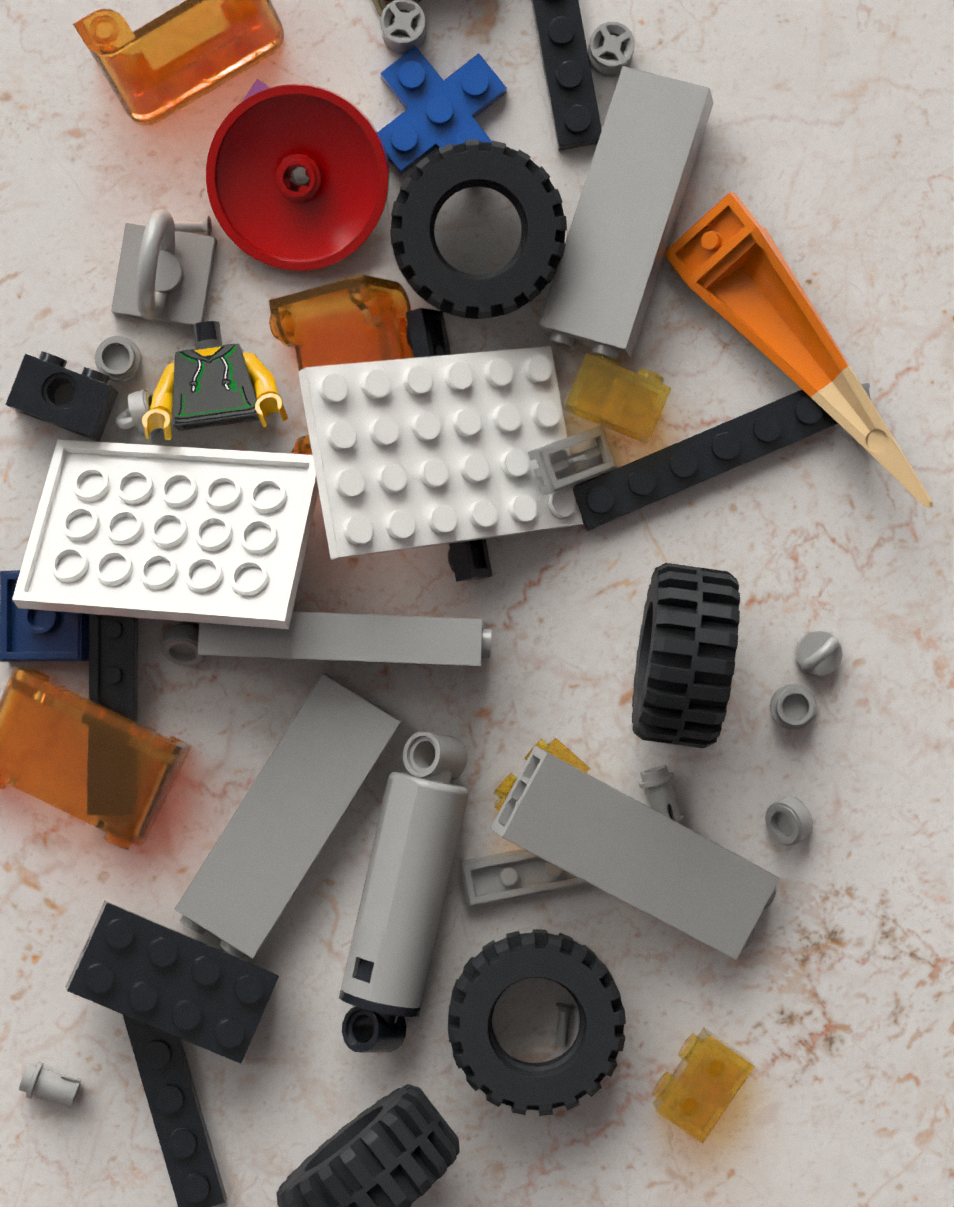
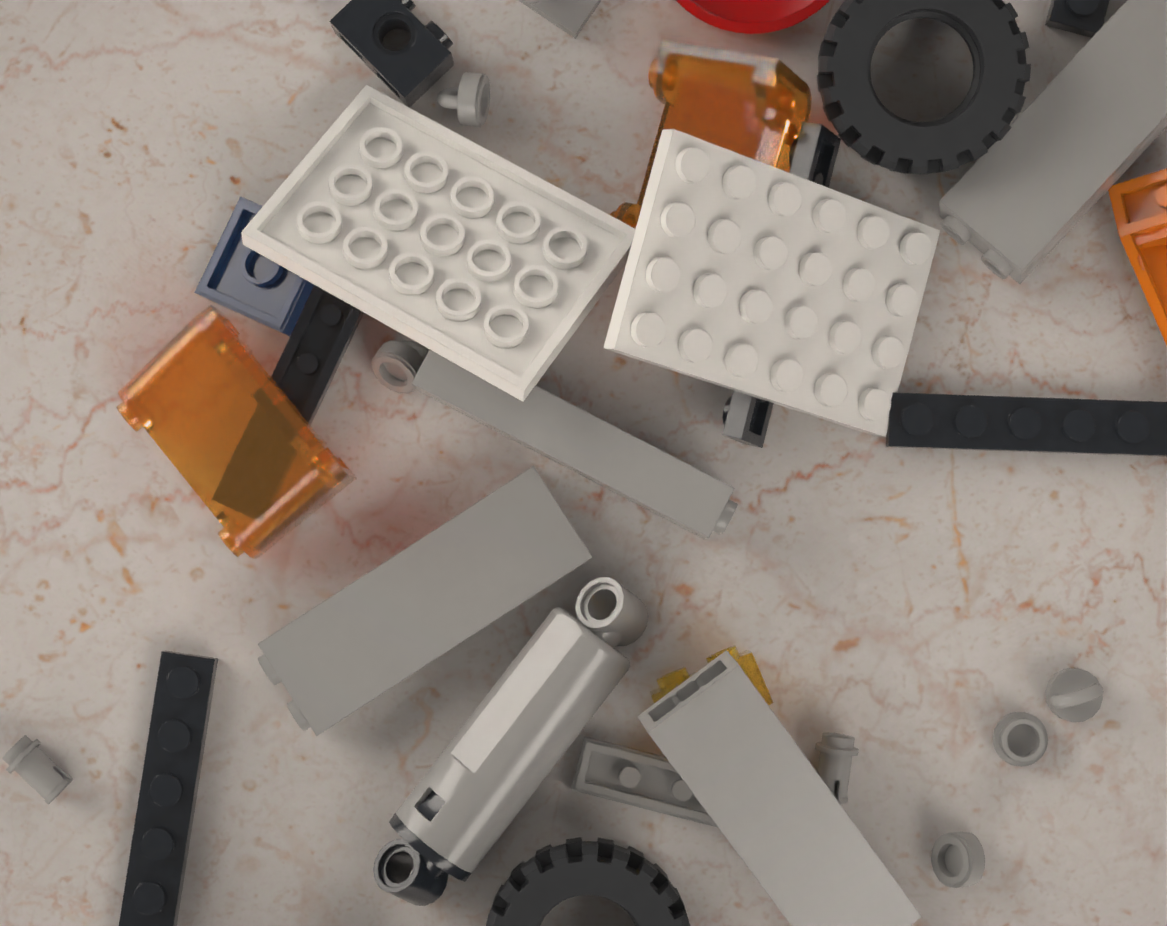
camera: 30 degrees right, 0 degrees up
(118, 358) = (471, 28): light grey plate -> none
(172, 982) = (219, 720): black brick -> none
(212, 387) = (558, 106): torso -> none
(547, 469) = (877, 361): light grey tile -> none
(618, 397) = (988, 318): clear yellow brick -> none
(686, 655) = (935, 630): black tyre -> none

